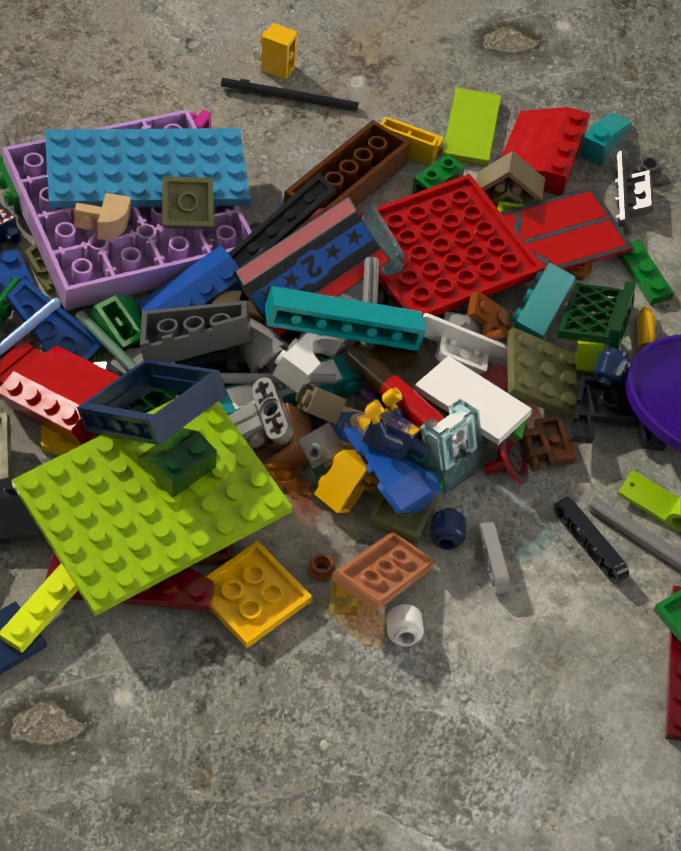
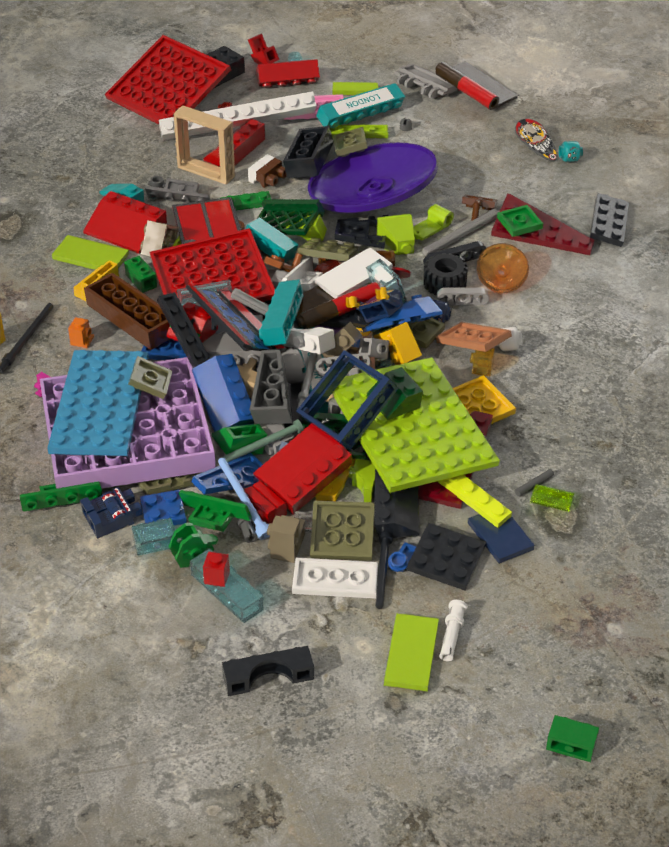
camera: 75 degrees left, 10 degrees down
(74, 707) = (552, 498): none -> clear neon green tile
(103, 682) = (531, 484): none -> dark grey piece
(107, 220) = (151, 419): tan brick -> none
(302, 140) = (80, 333): none -> orange brick
(324, 561) = (458, 371): dark orange plate -> none
(533, 509) = (444, 272): none -> black tyre
(555, 590) = (506, 259): none -> clear orange dish
(607, 456) = (398, 233): none -> lime slope
(612, 367) = (336, 216): dark blue head -> none

